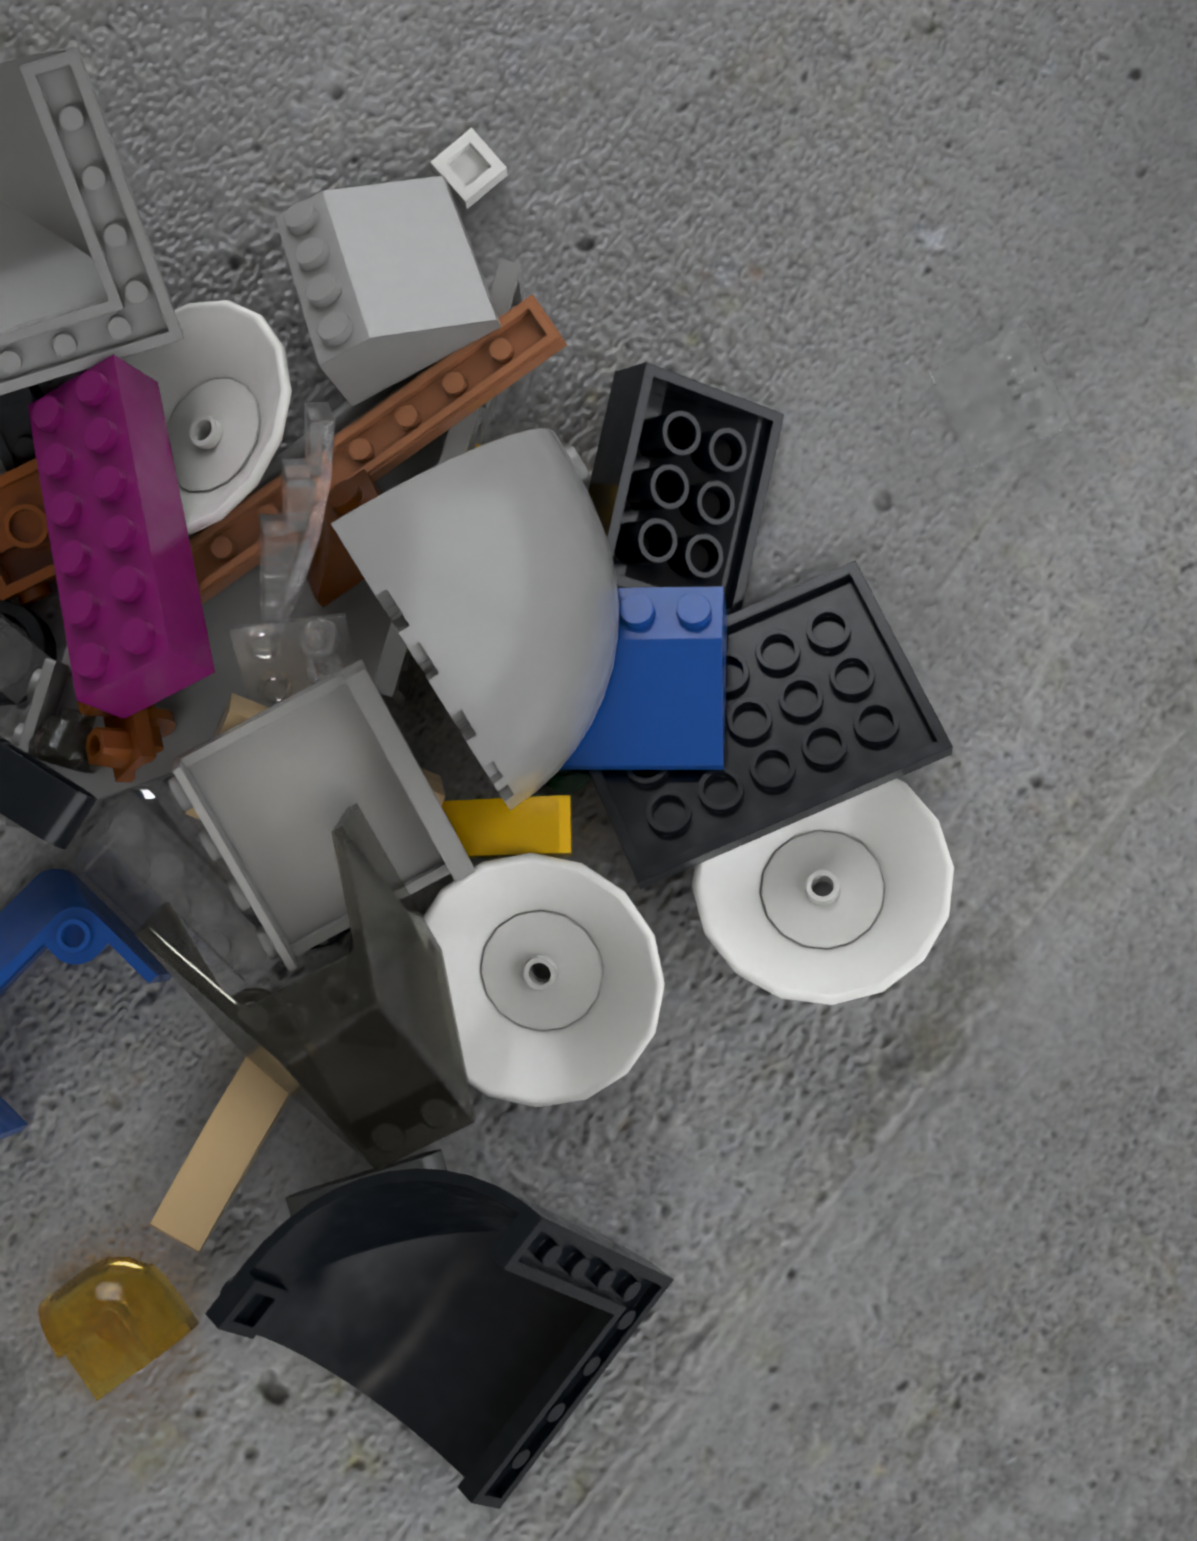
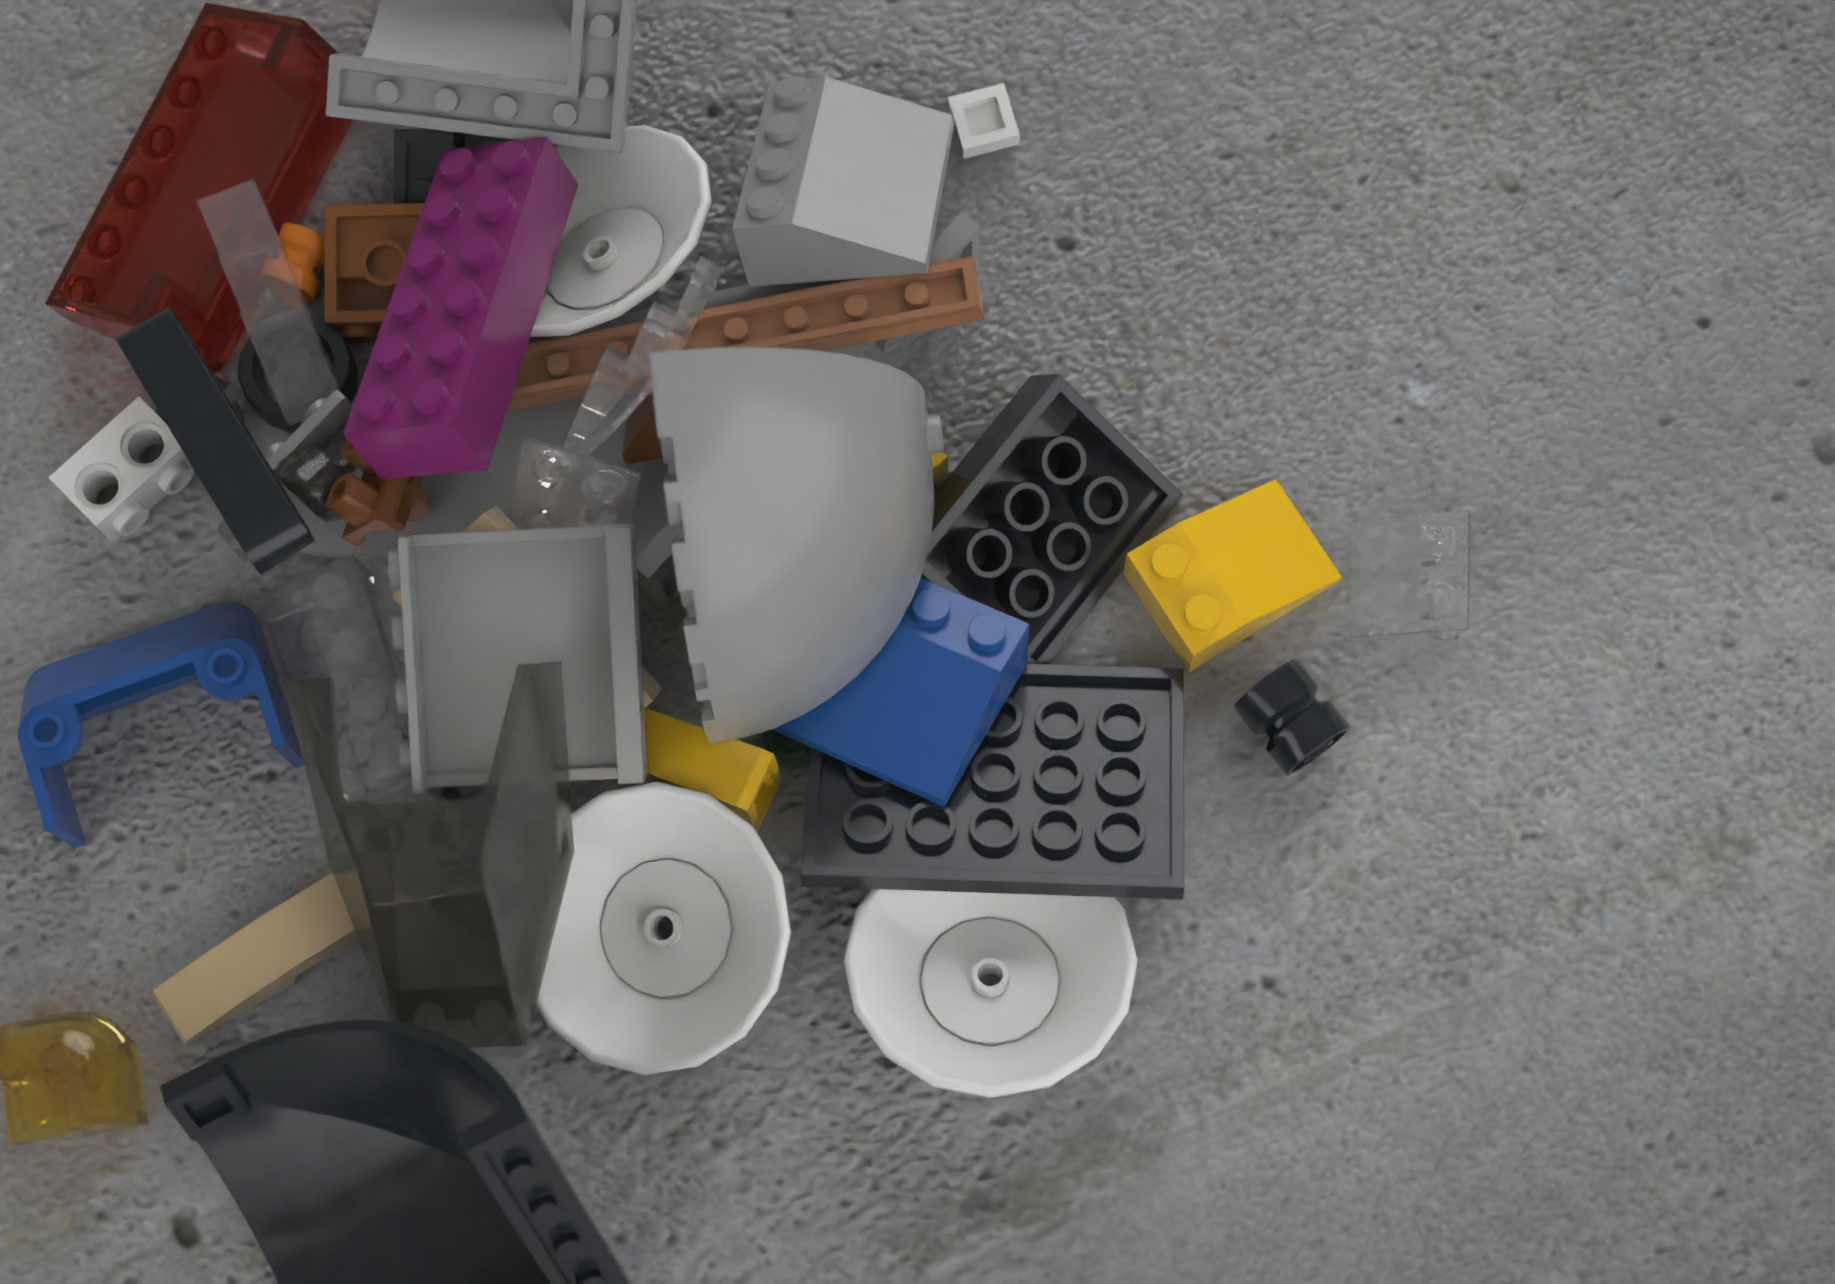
camera: 30 degrees right, 10 degrees down
(854, 463) = (1229, 572): none -> yellow slope
(962, 560) = (1291, 717): none -> black wheel

